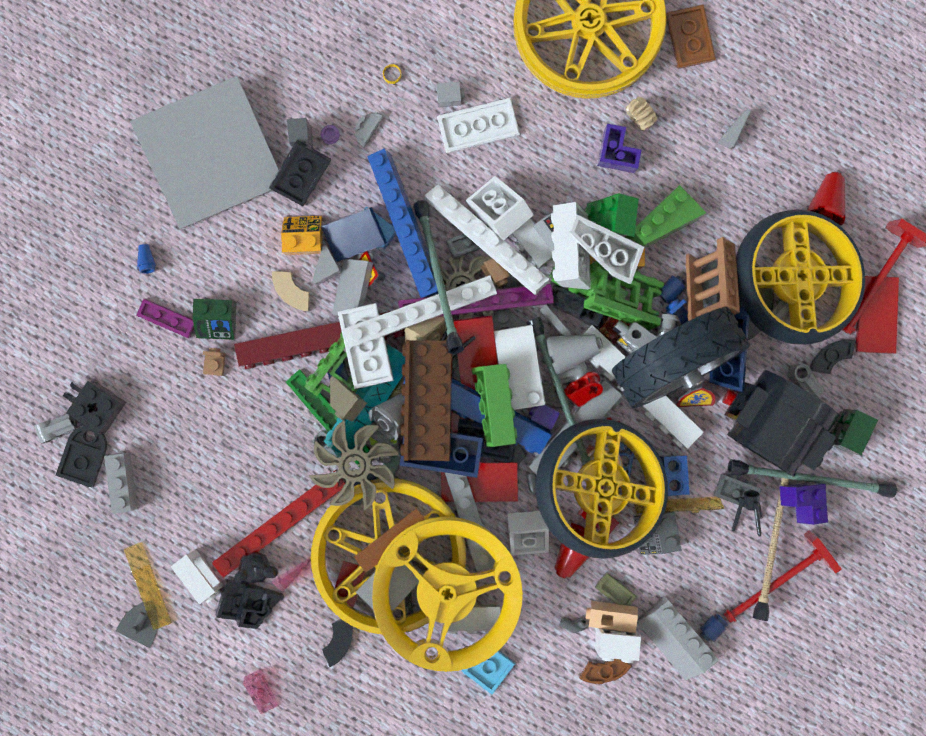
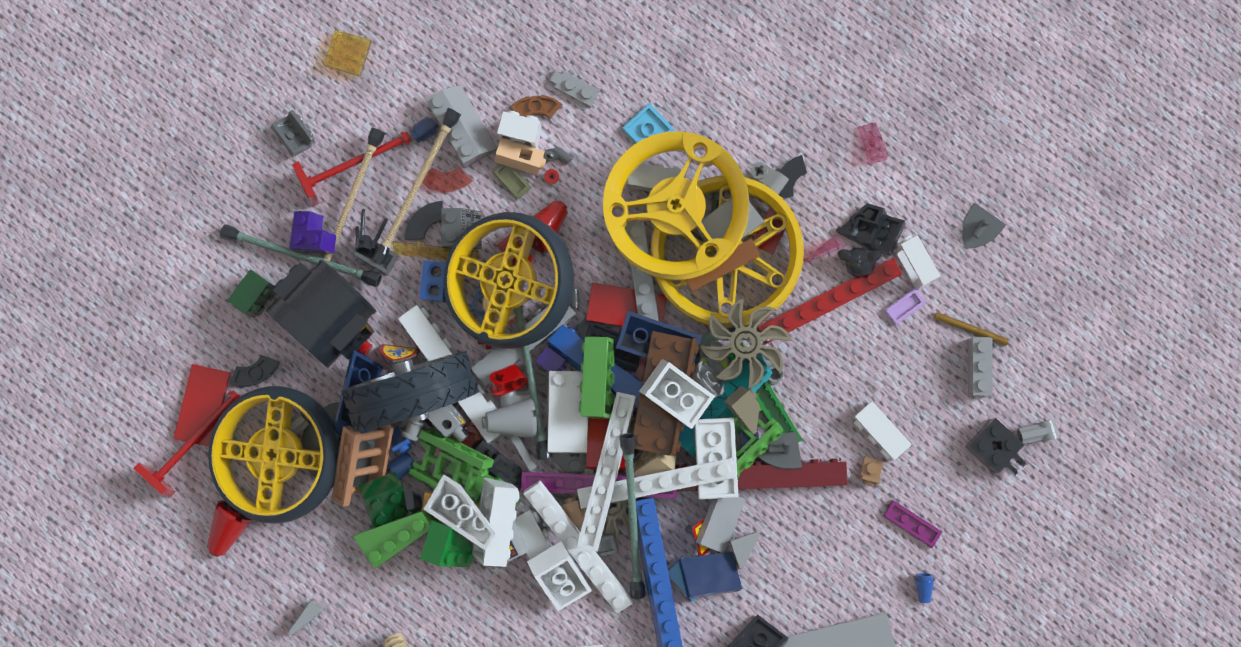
camera: 170 degrees left, 5 degrees down
(82, 458) = (1016, 398): black tile -> none
(135, 519) = (970, 328): none -> pearl gold bar
(147, 586) = (968, 262): clear yellow piece -> none
(204, 530) = (904, 306): none -> lavender tile
(209, 402) = (881, 431): none -> white brick
(214, 318) = (863, 514): dark green slope -> none
(289, 291) = (784, 529): tan tile -> none
(300, 364) = (783, 452): none -> dark grey shield
(302, 235) = (762, 585): light orange slope -> none
(356, 638) = (770, 178): none -> light grey piece
(414, 401) = (677, 393): none -> white slope
(470, 313) = (606, 472): none -> white plate
(527, 533) = (588, 249): white slope -> none
(570, 697) = (574, 87): none -> light grey hinge
(576, 605) = (551, 172): none -> red piece
(614, 154) = (434, 613): dark purple brick -> none
(654, 255) = (413, 501): none -> black tile
(681, 578) = (446, 181): none -> clear red tile
(683, 252) = (384, 499): none -> dark green brick
(690, 643) = (450, 119): none -> tan hose
(697, 535) = (423, 220): none -> black tile
(805, 694) = (347, 53): none -> clear yellow plate
(807, 380) = (286, 350): light grey piece -> none
(844, 601) = (293, 133): none -> dark grey bracket

